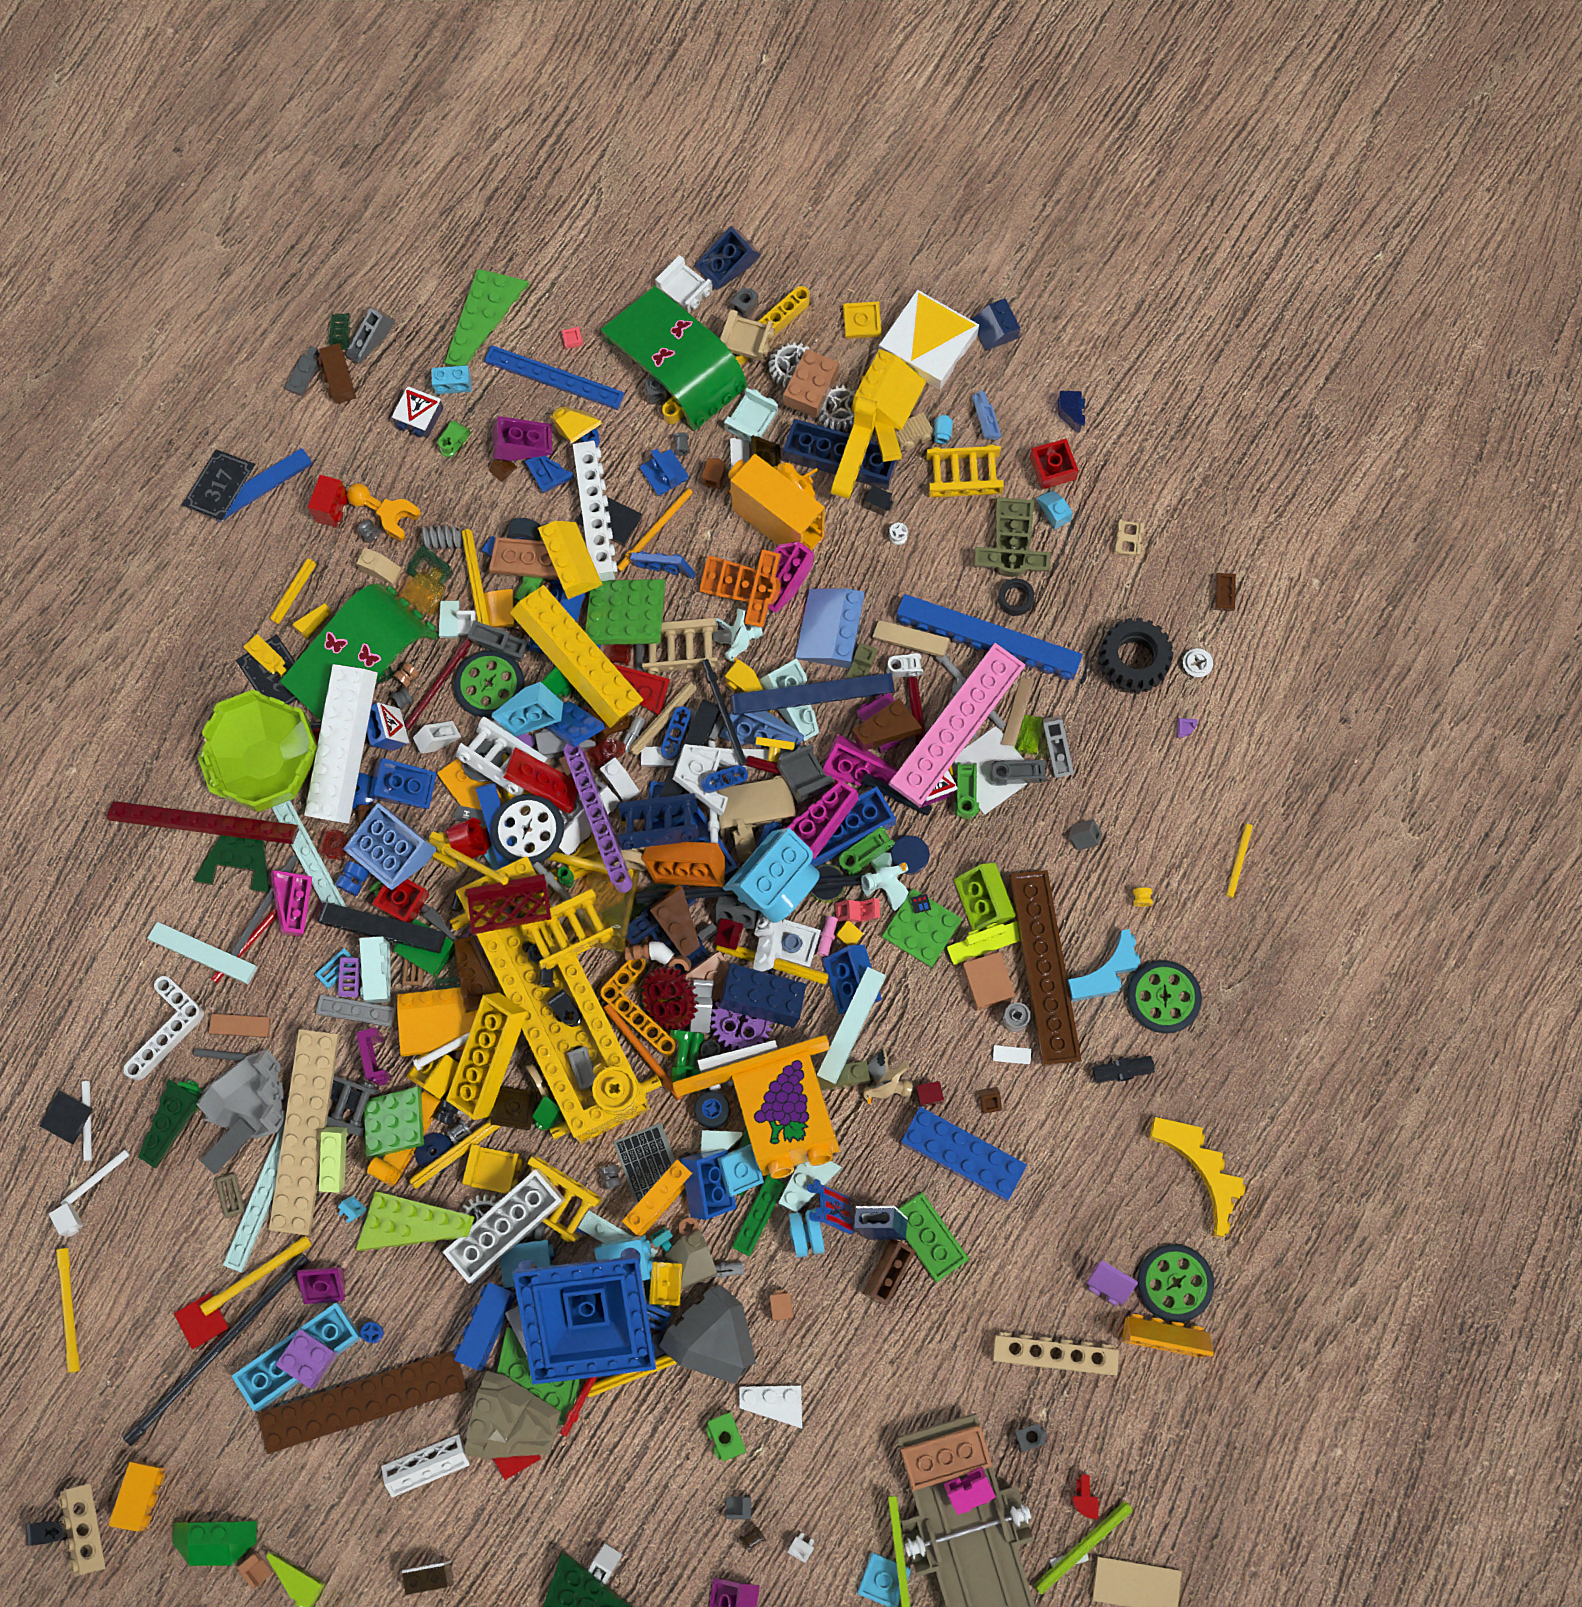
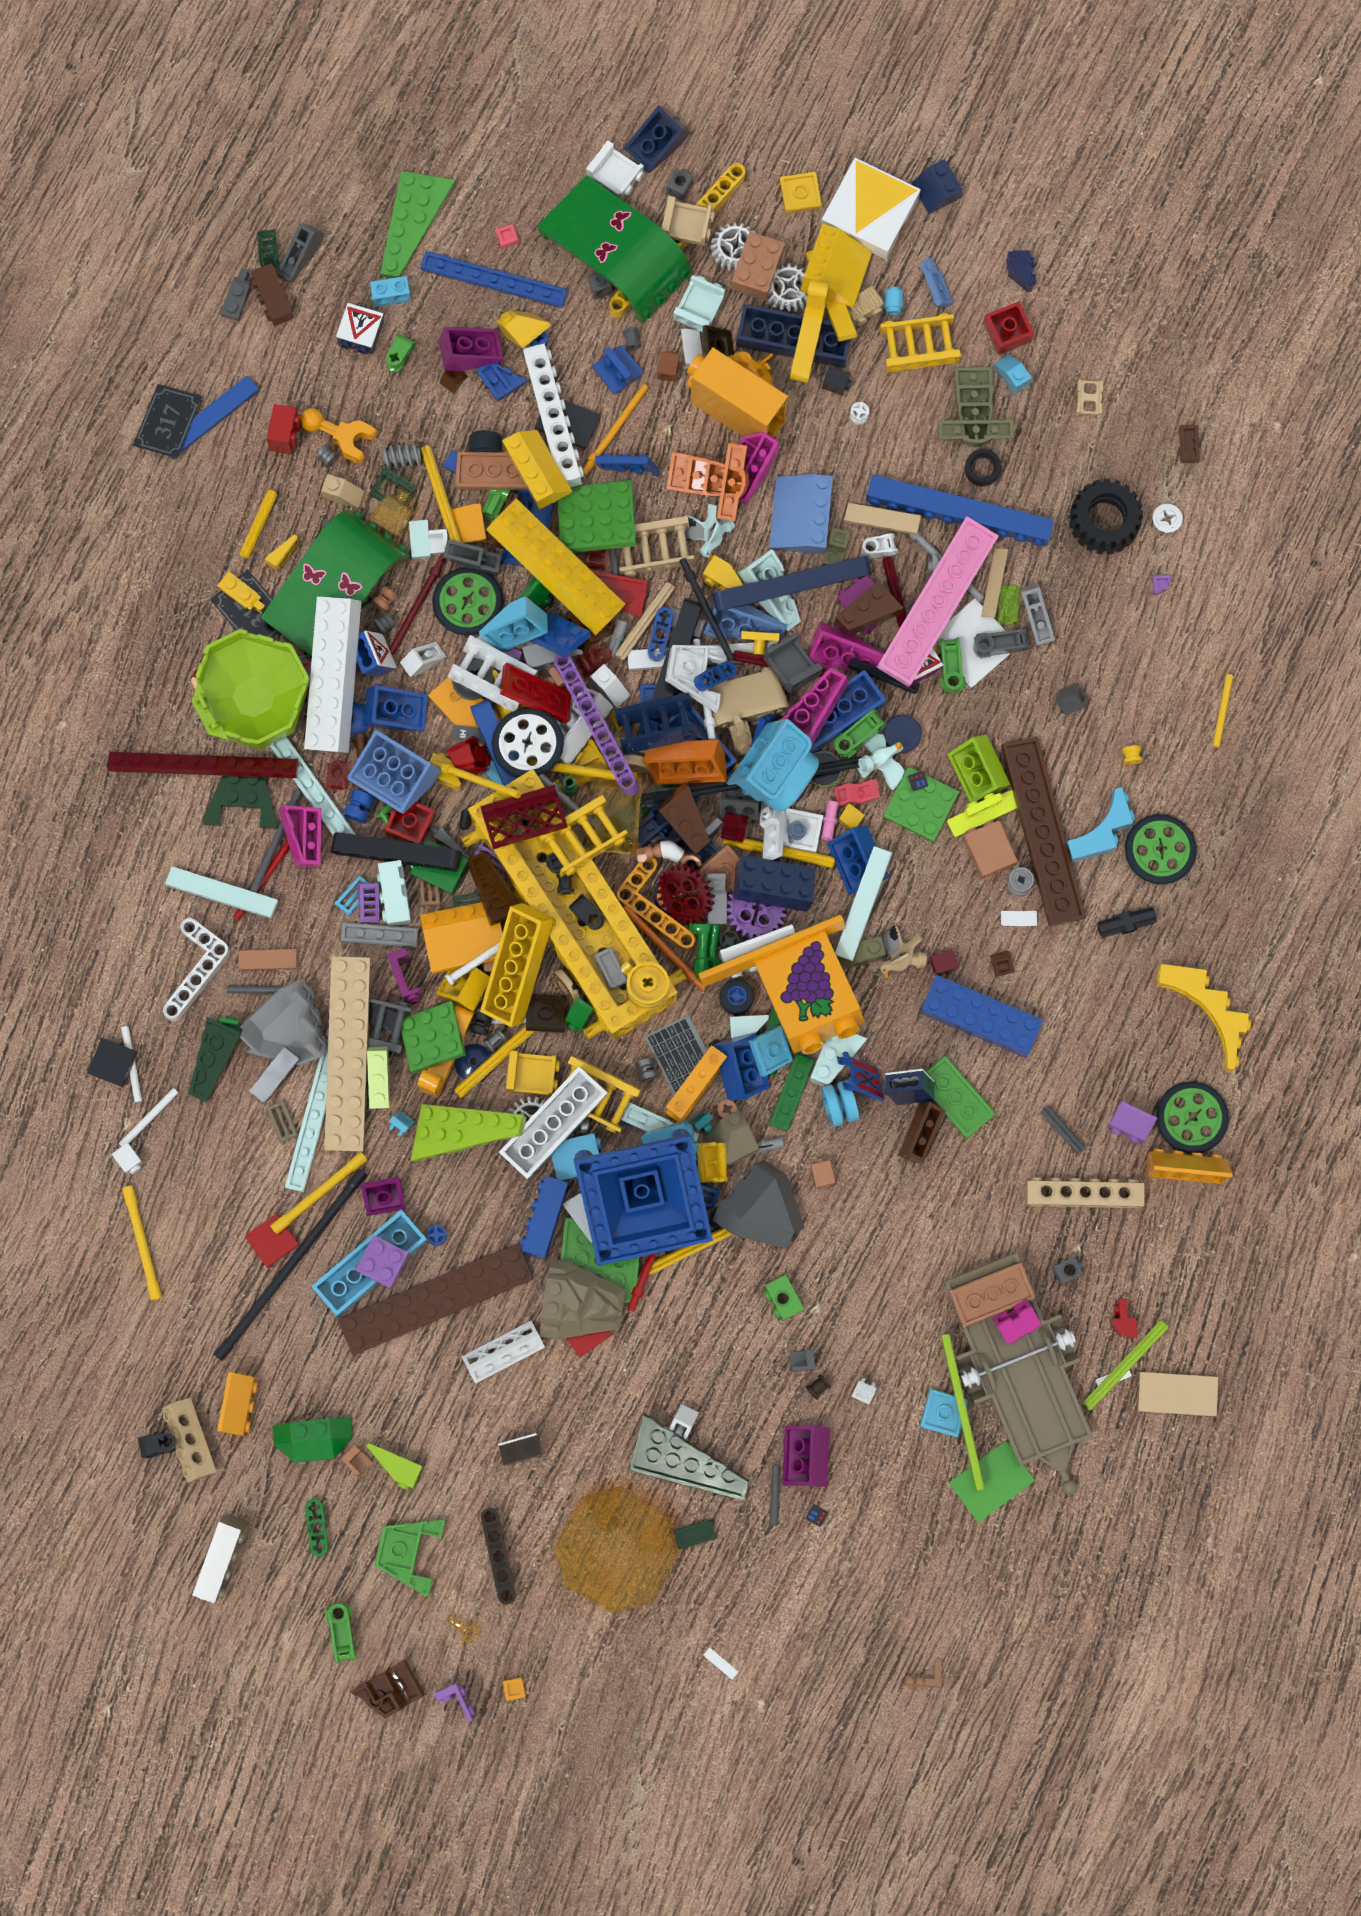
camera: 10 degrees left, 5 degrees up
(774, 1402) = (827, 1263): white wing -> none
(1038, 1282) = (1062, 1129): none -> dark grey axle

